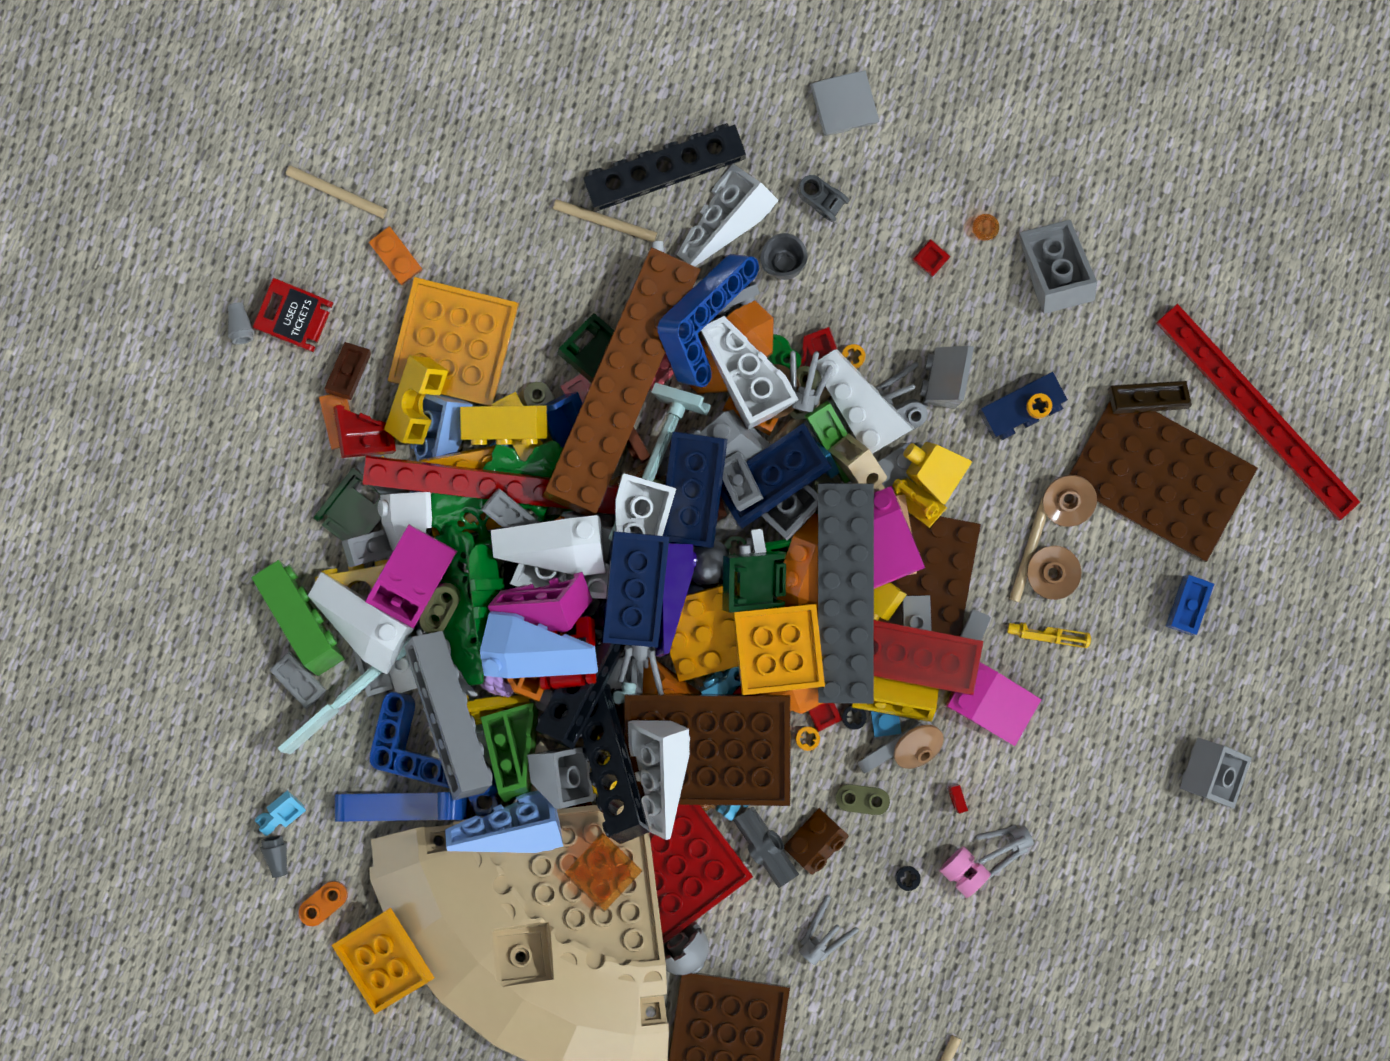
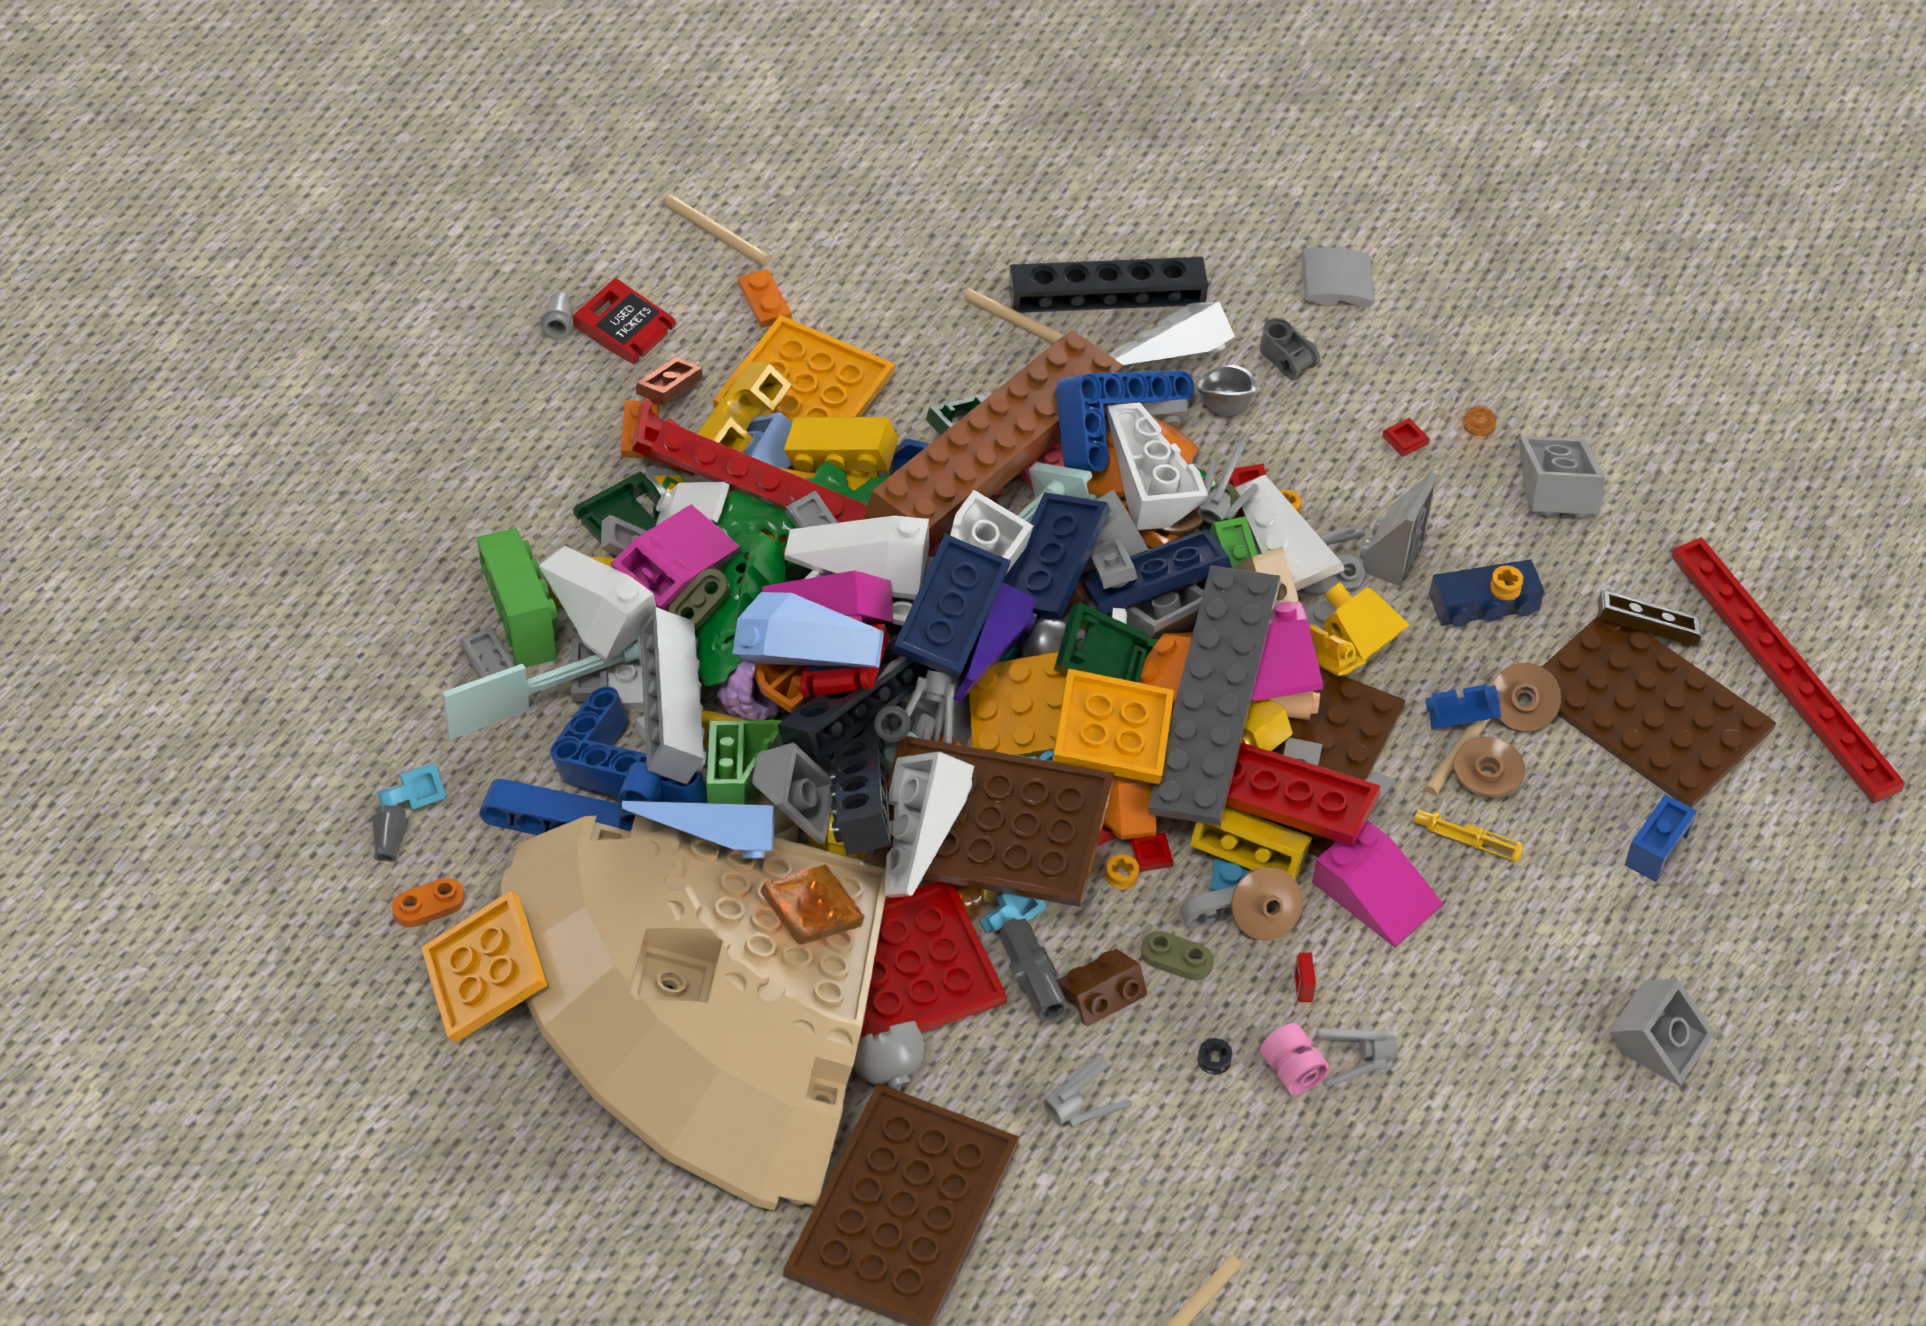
camera: 15 degrees right, 35 degrees down
(618, 695) = (883, 725): none -> dark grey cone
(854, 726) = (1193, 855): black bush -> none
(1026, 523) = (1478, 704): none -> blue hinge

